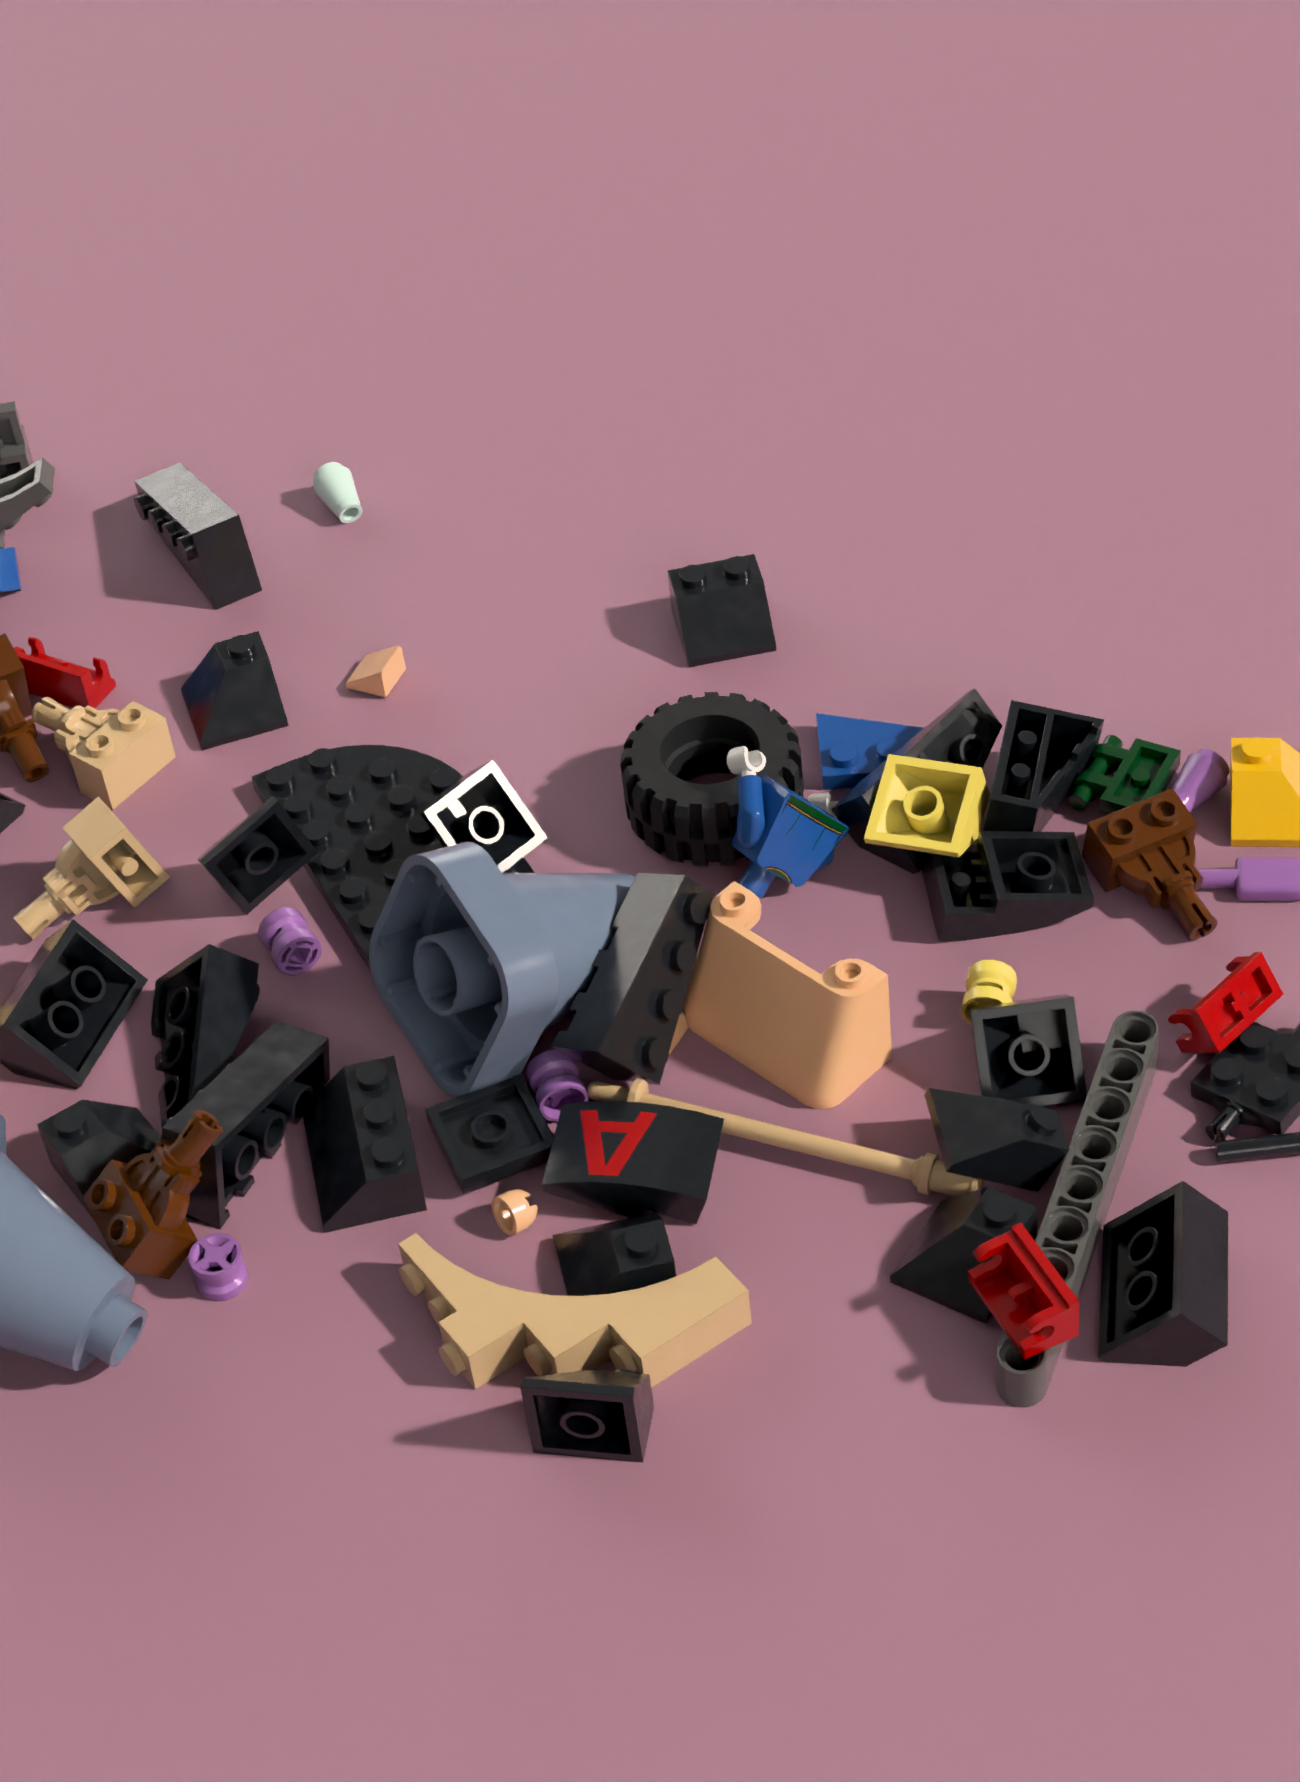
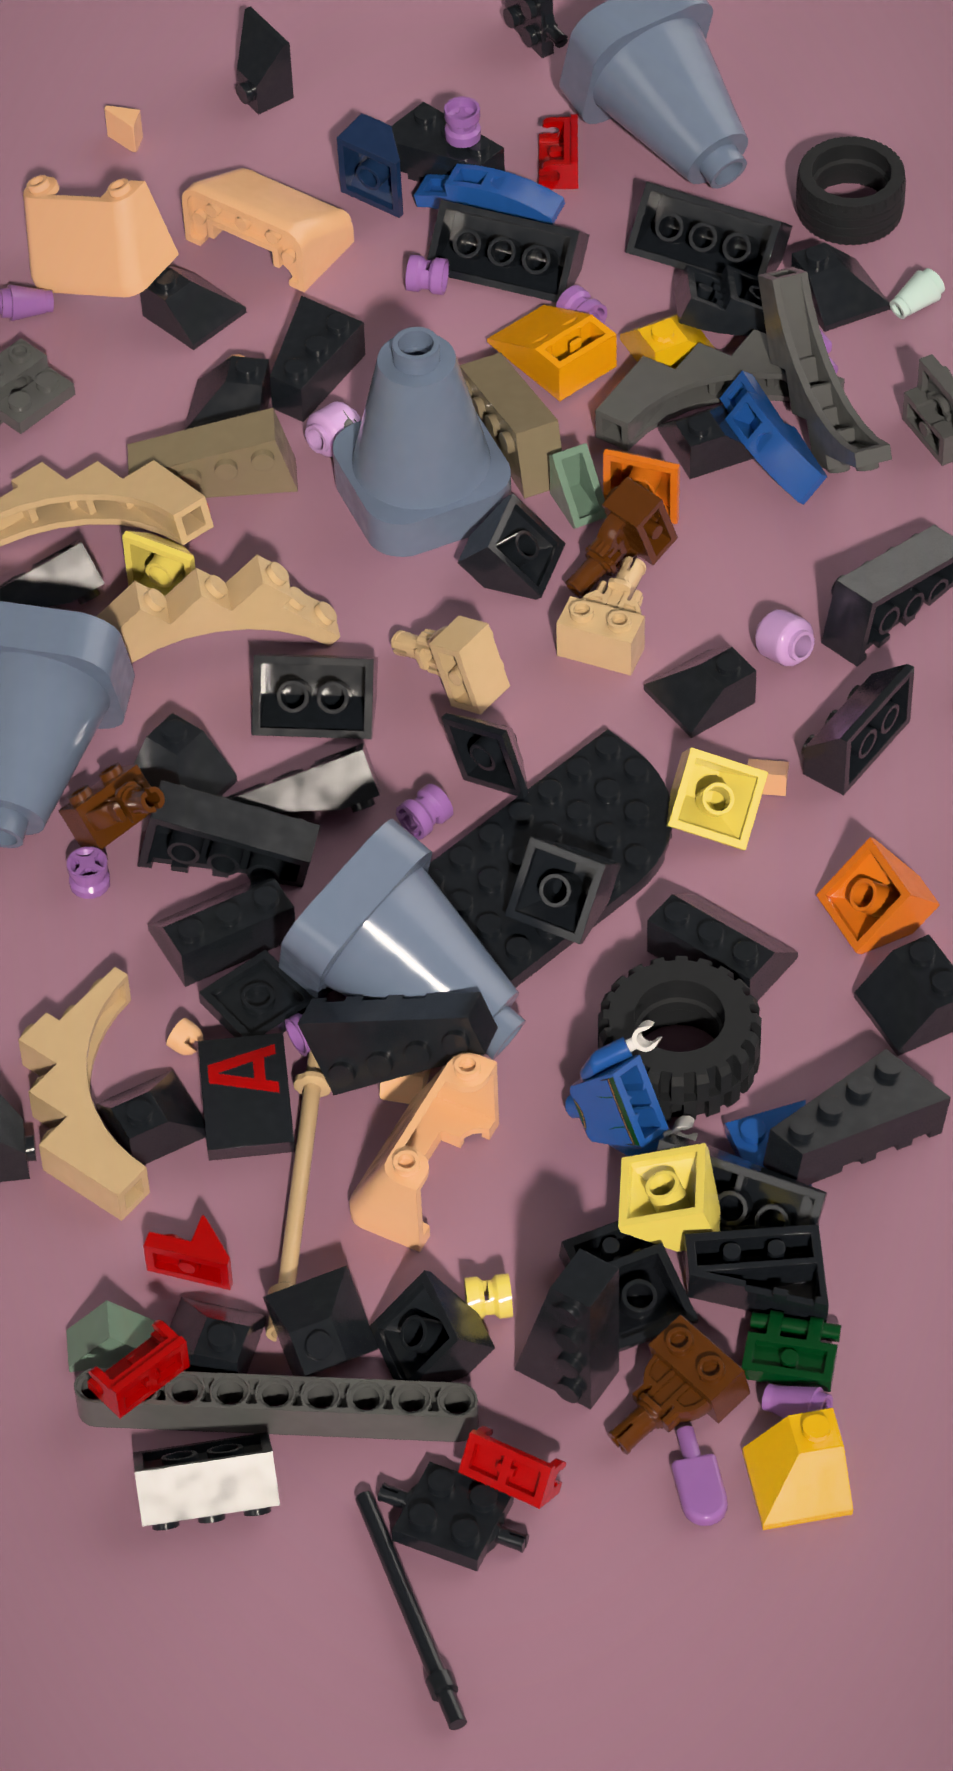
camera: 70 degrees right, 5 degrees up
(63, 680) = (691, 566): red hinge -> none
(207, 619) = (784, 638): none -> lavender head
(364, 579) = (860, 729): none -> black slope
(394, 704) = (715, 798): none -> light yellow slope
(585, 616) = (876, 898): none -> orange slope
(585, 747) = (702, 930): none -> black slope
(844, 1243) = (196, 1260): none -> red slope
(869, 668) = (855, 1119): none -> black wedge
(935, 1356) = (105, 1336): none -> sand green slope
(1097, 893) = (576, 1332): none -> black wedge

